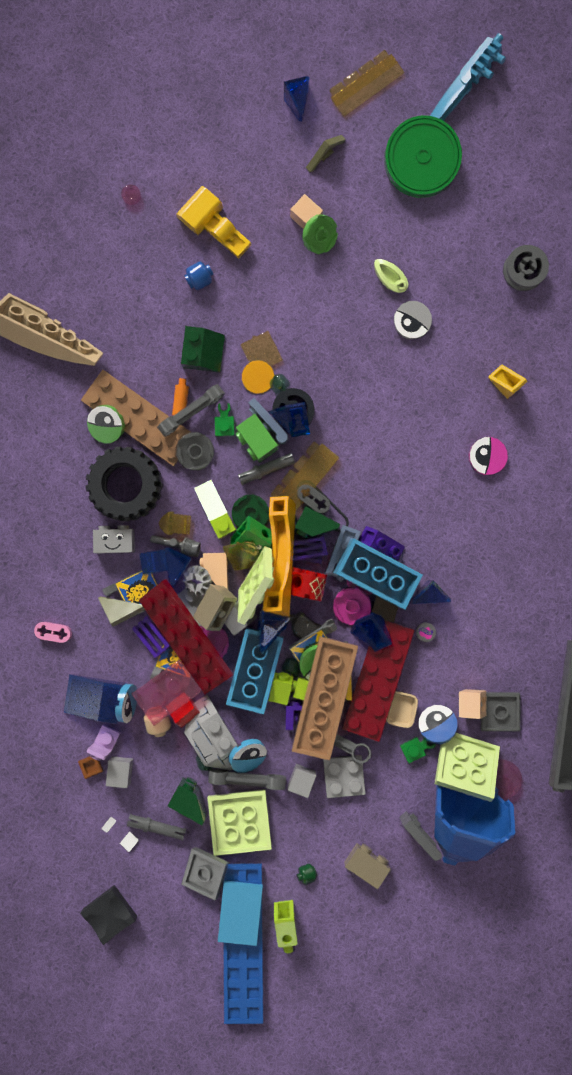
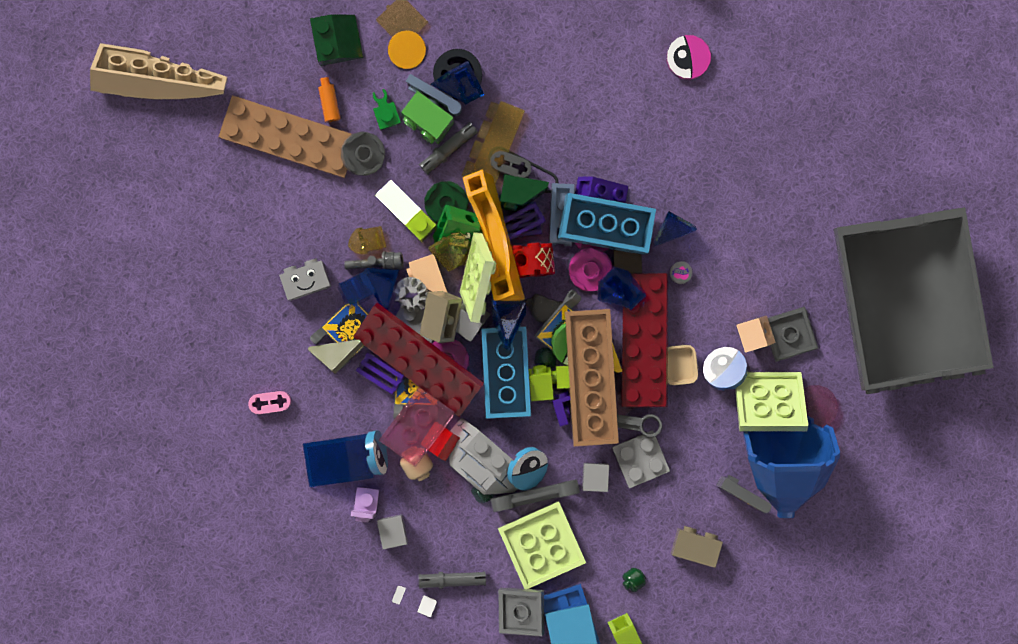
camera: 20 degrees left, 0 degrees up
(90, 767) = (358, 536): dark orange tile -> none
(101, 472) = (290, 184): black tyre -> none
(105, 424) = (255, 154): tile -> none
(189, 801) = (478, 536): dark green slope -> none
(210, 397) = (330, 128): dark grey piece -> none
(279, 383) = (432, 49): clear green piece -> none
(414, 749) = (709, 405): green plate -> none

